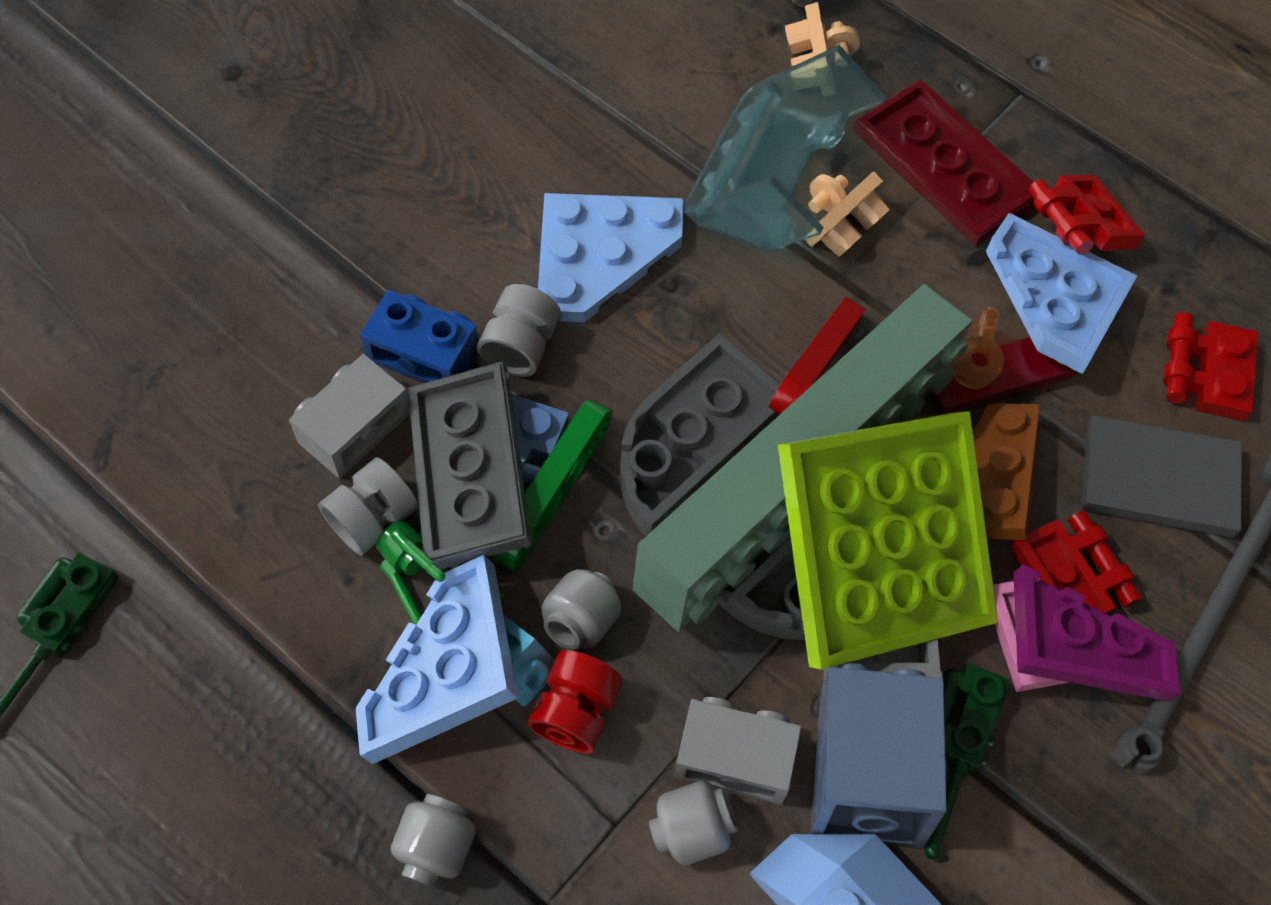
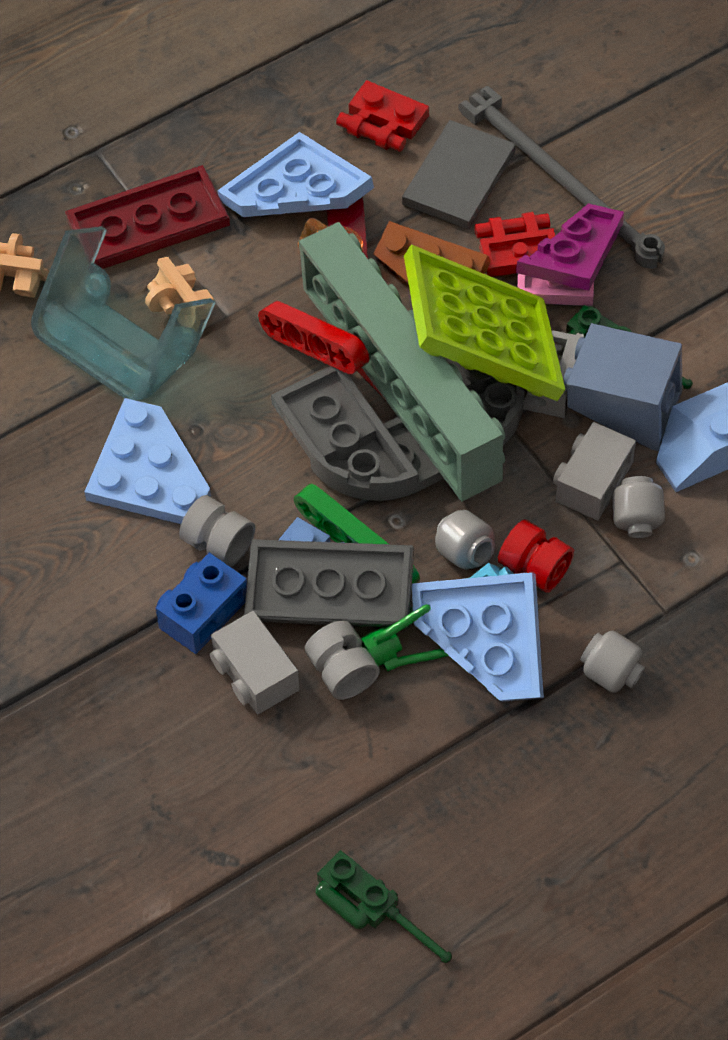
camera: 70 degrees left, 5 degrees down
(1086, 214) = (236, 144): red plate -> none

